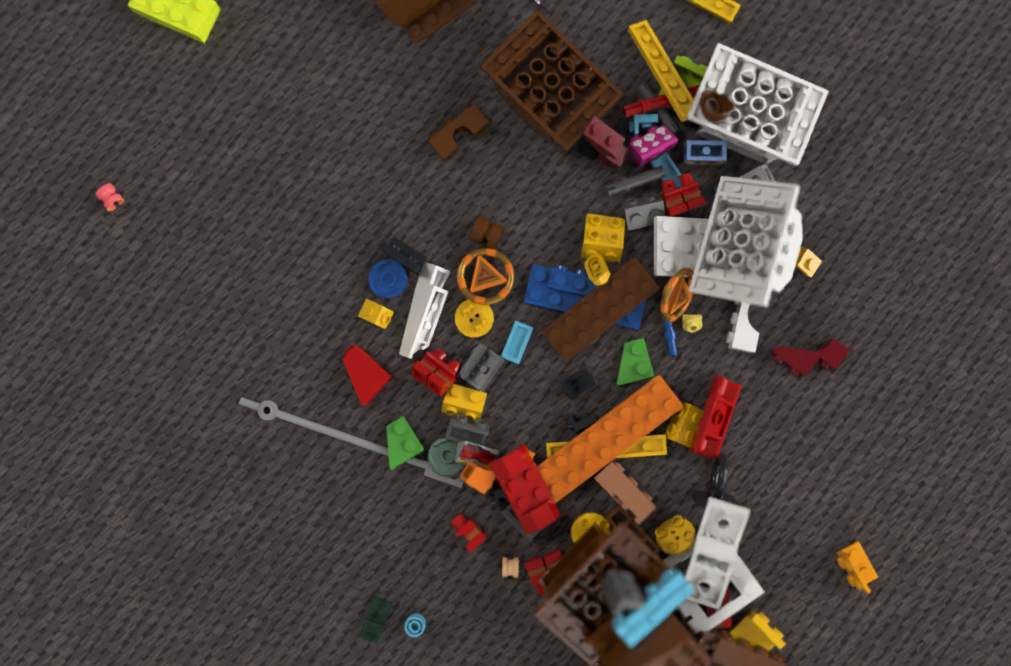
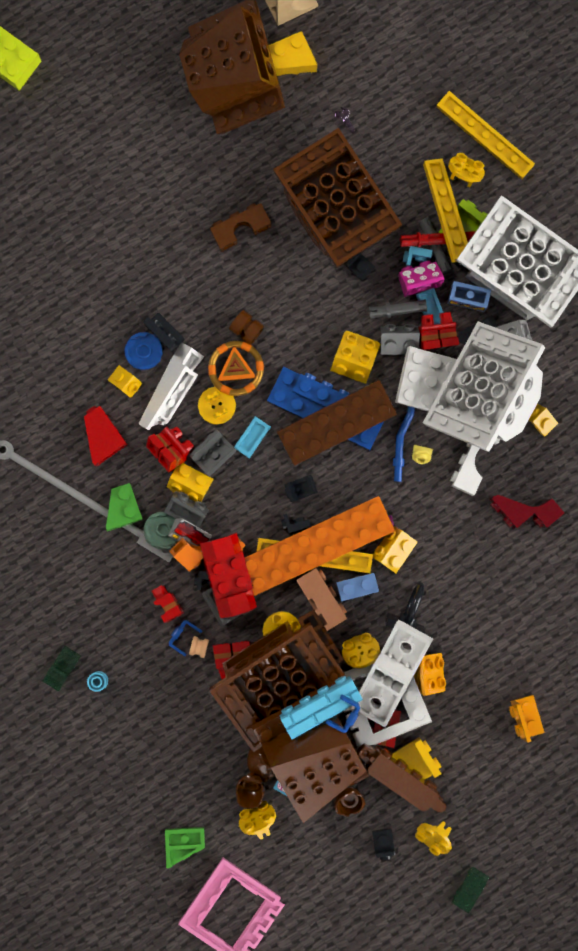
camera: 10 degrees right, 0 degrees up
(484, 558) = (176, 633): none -> blue piece
(597, 269) = (342, 384): yellow plate -> none
(606, 142) = (376, 266): dark red arch -> none
(621, 591) = (294, 685): dark grey bracket -> none
(634, 363) = (359, 481): bright green wing -> none
(657, 471) = (357, 586): none -> medium blue brick
(673, 25) = (466, 169): none -> yellow plate
(678, 294) = (413, 425): piece -> none
(687, 612) = (351, 719): none -> blue piece
(715, 106) = (484, 254): reddish brown hair -> none
(716, 417) = (423, 548): red piece -> none
(751, 546) = (430, 674): none -> light orange bracket

